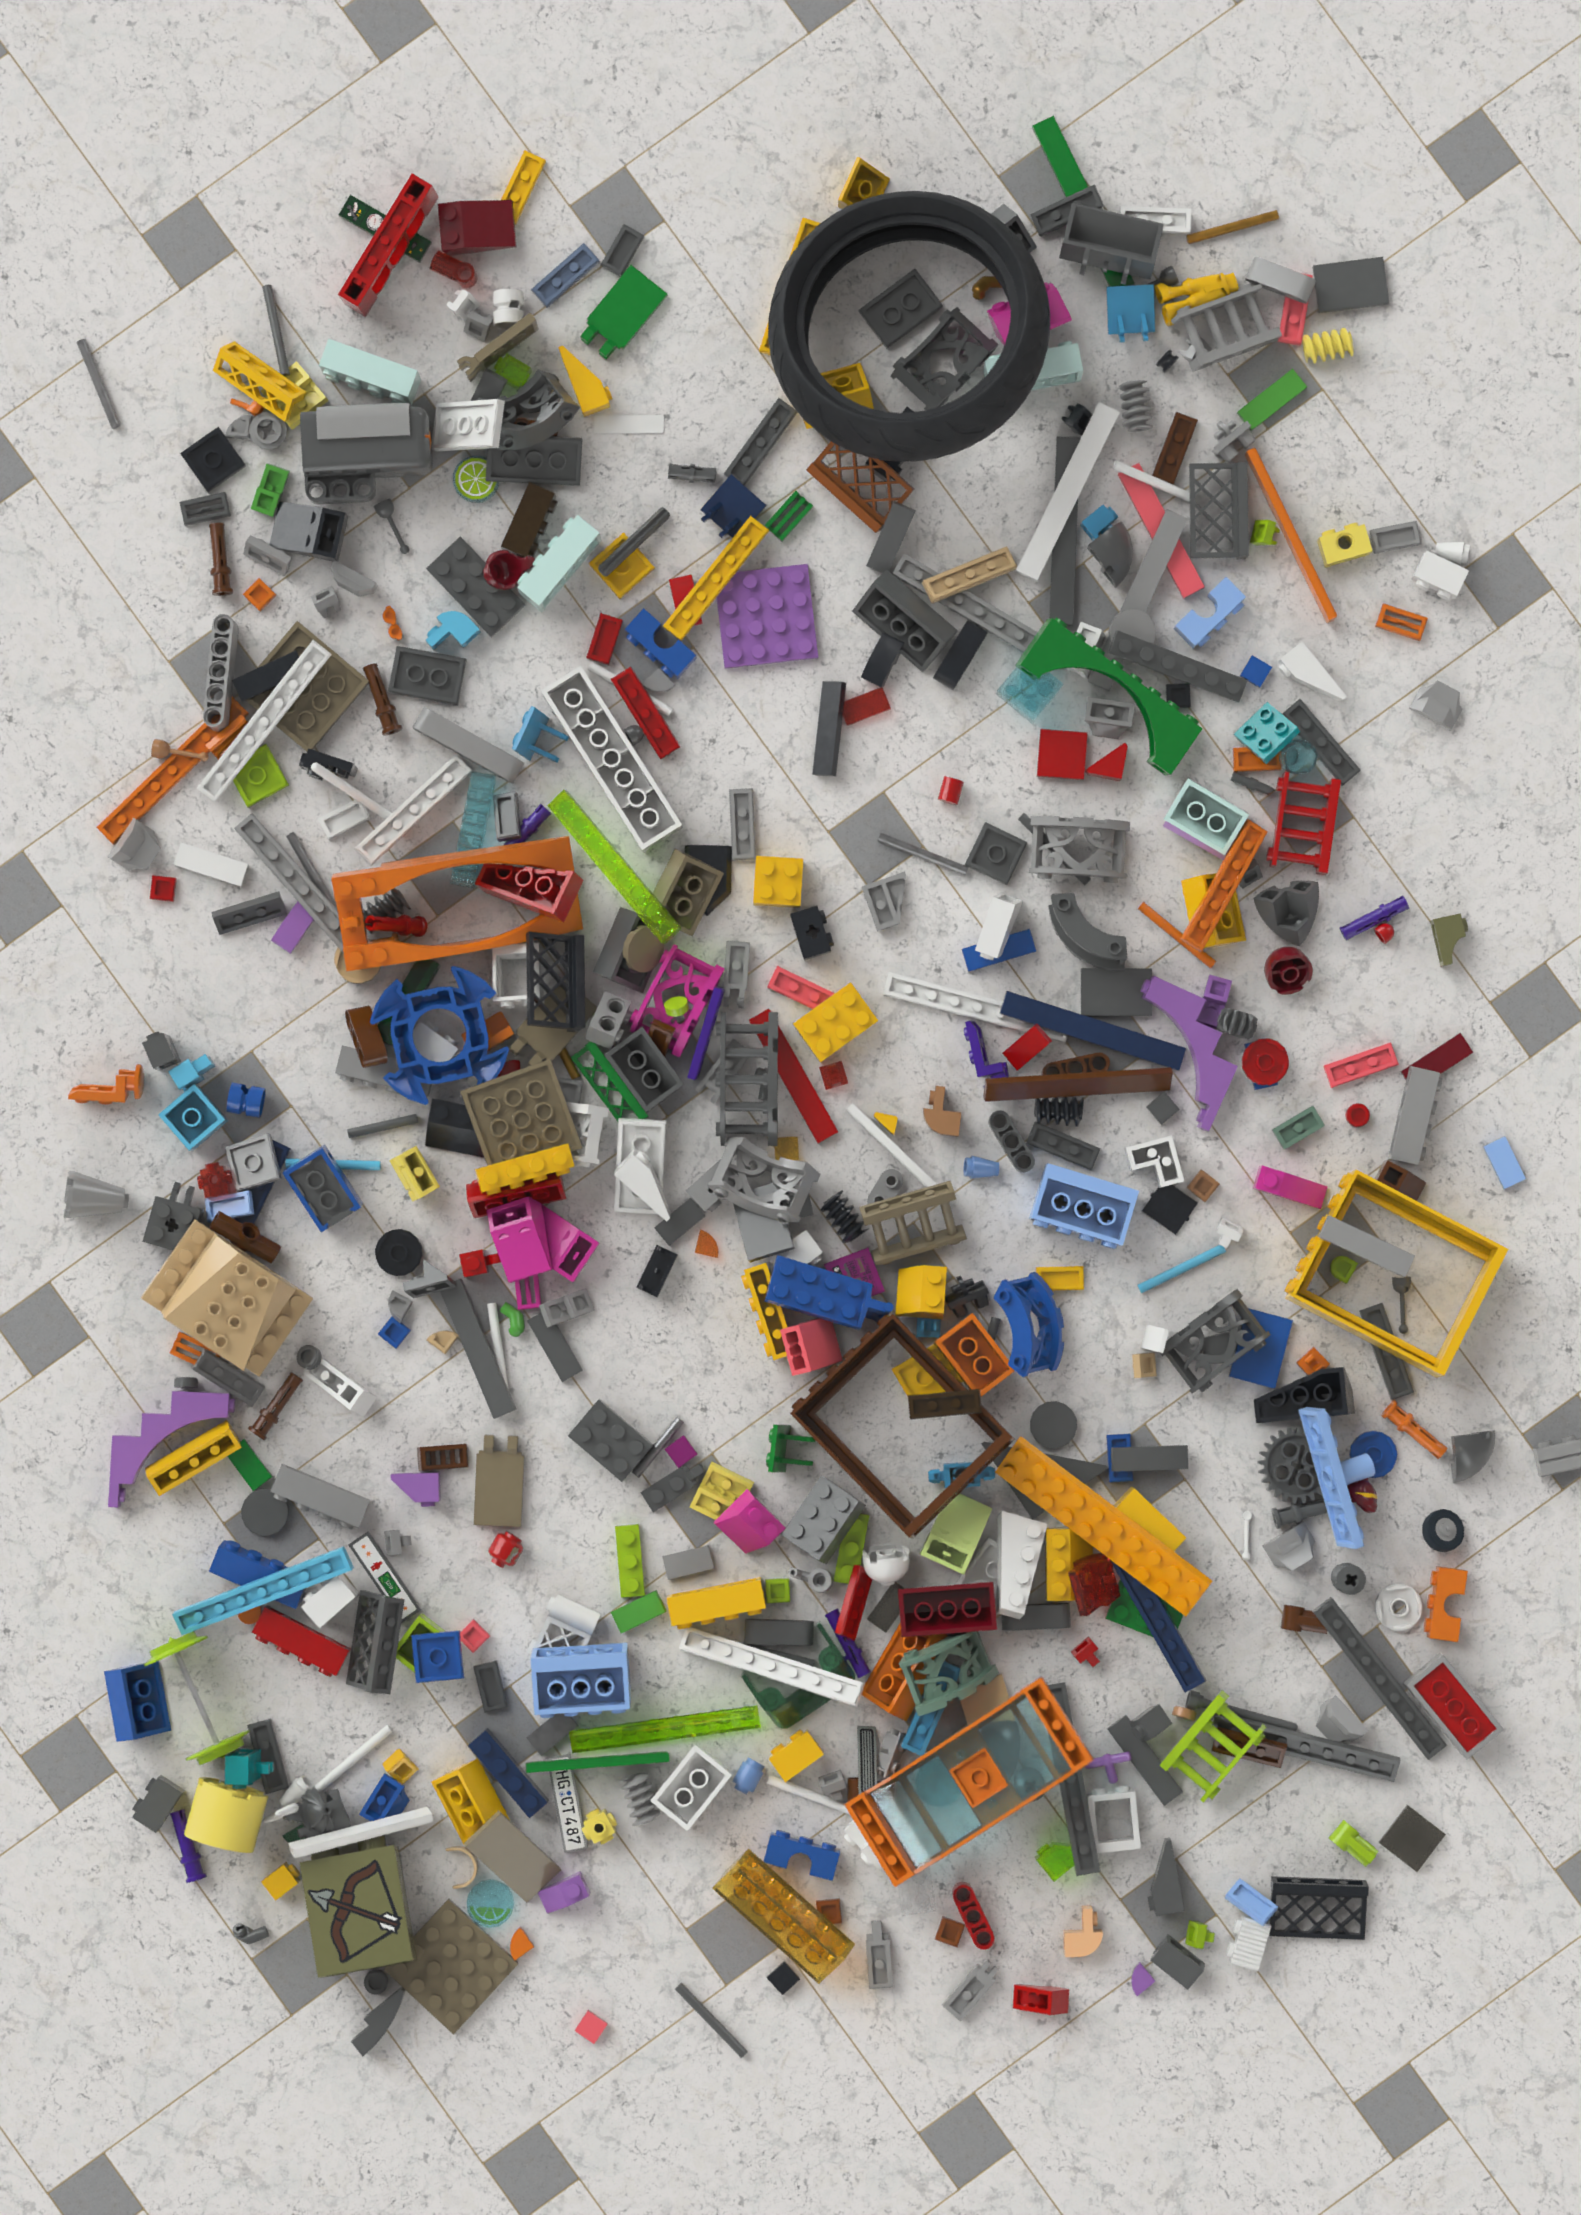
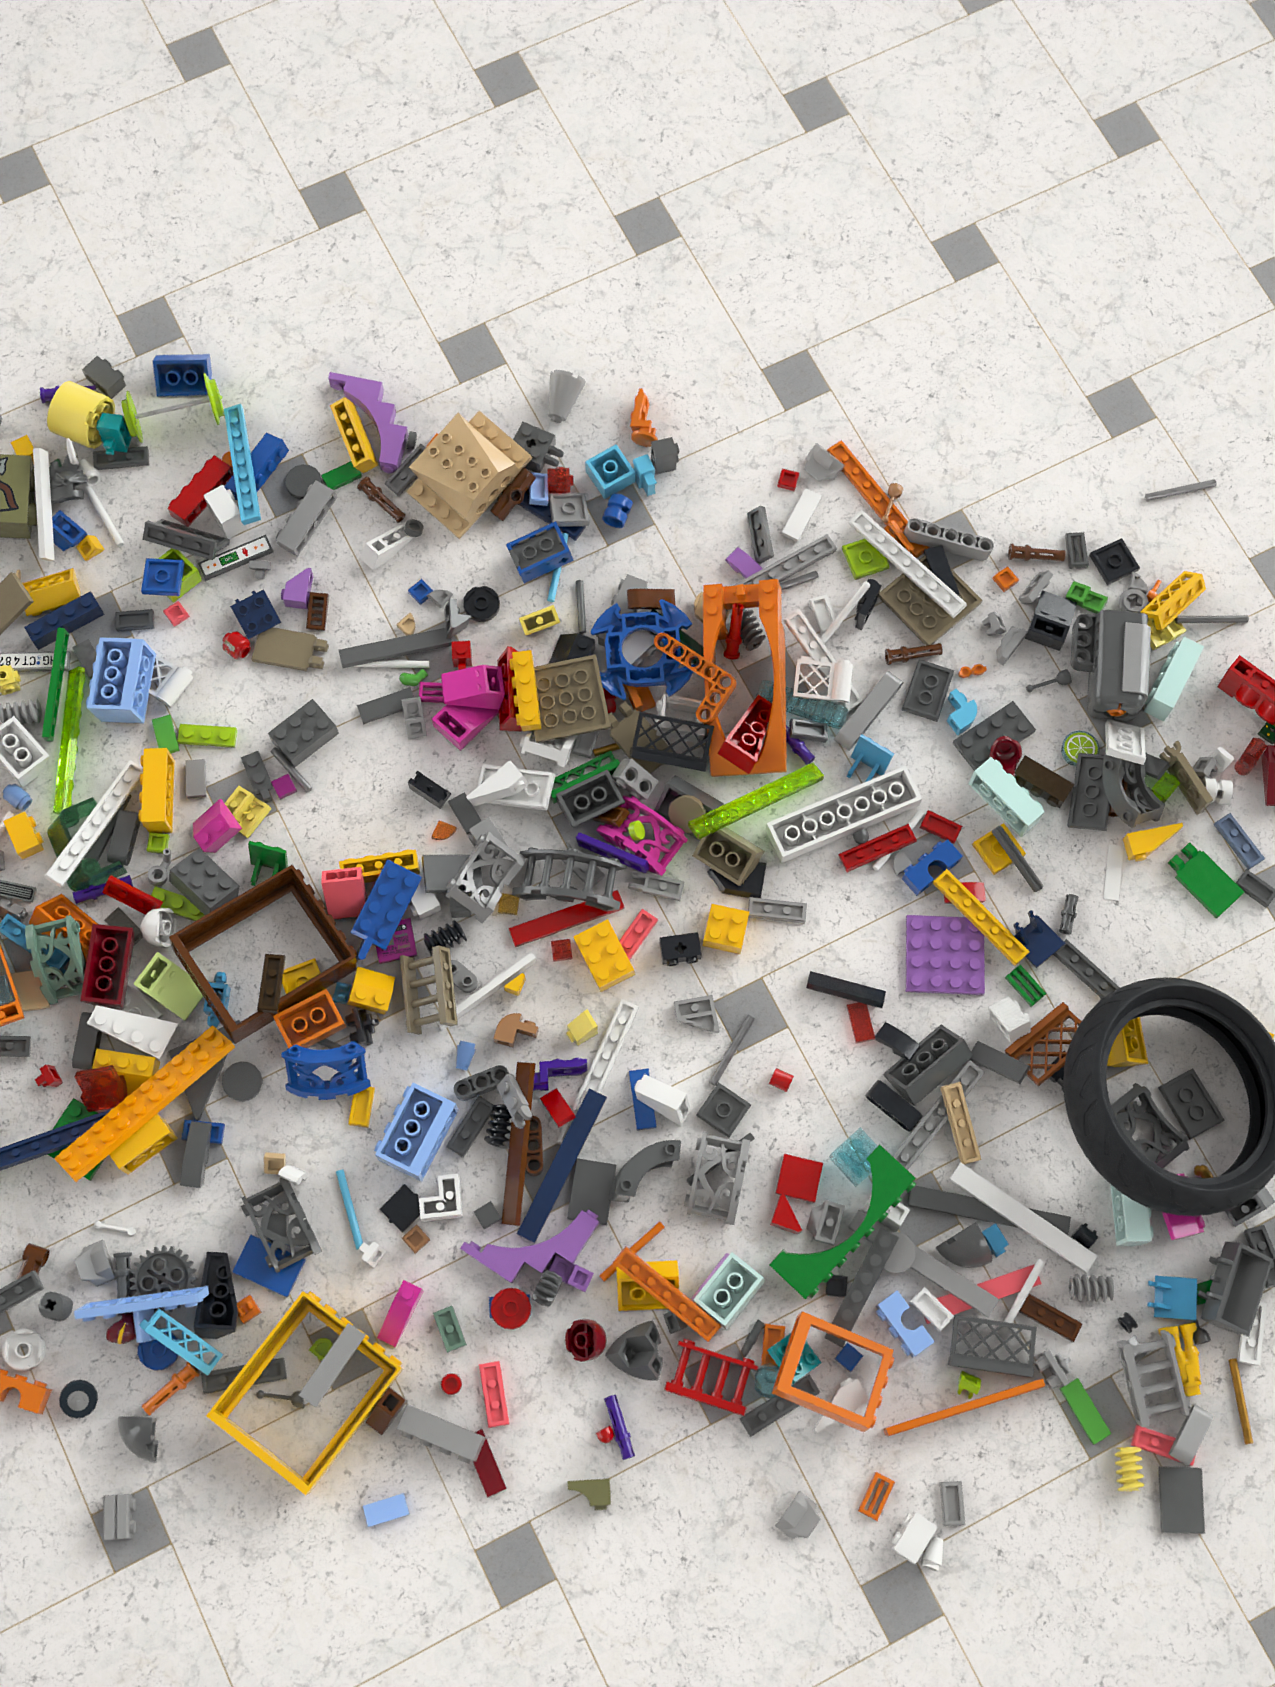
camera: 95 degrees right, 15 degrees down
(437, 787) = (839, 680): none -> white piece
(462, 1532) = (255, 614): none -> dark blue plate
(465, 958) = (701, 670): none -> orange beam
(836, 530) = (1010, 1019): none -> white brick
(929, 1034) = (582, 1028): none -> light yellow slope
(1031, 1096) = (514, 1100): none -> light grey hinge
(1188, 584) = (932, 1309): none -> white tile
(1273, 733) = (791, 1359): none -> orange window
(1334, 555) = (942, 1444): light yellow brick -> none
(1372, 1423) = (175, 1345): none -> medium azure fence

